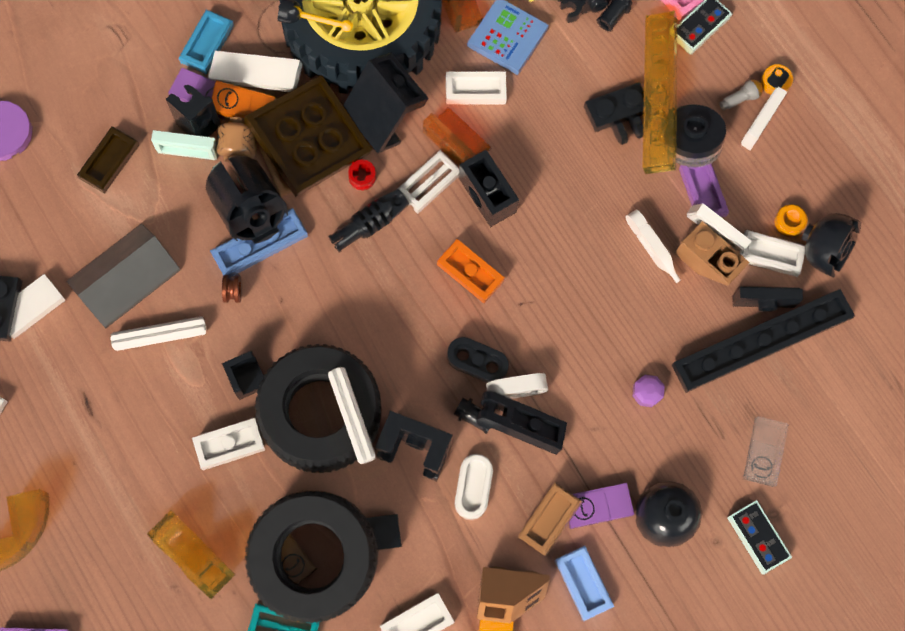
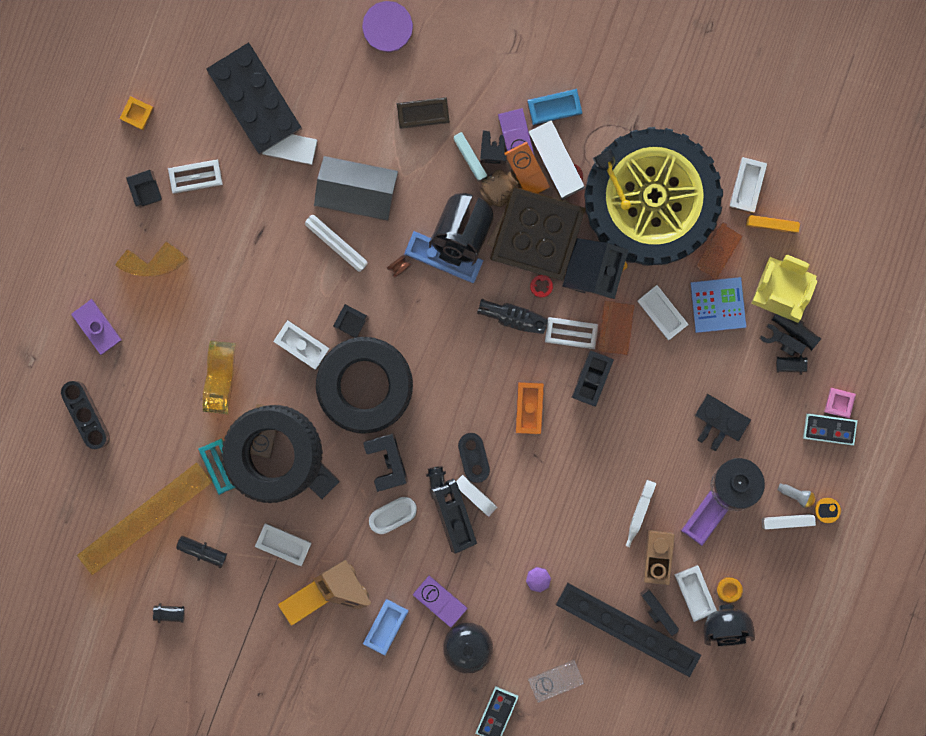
camera: 60 degrees right, 15 degrees up
(351, 415) = (371, 413): white axle -> none
(550, 519) = (408, 578): medium nougat tile -> none
(660, 93) = (751, 440): clear yellow plate -> none
(731, 235) = (681, 547): white tile -> none

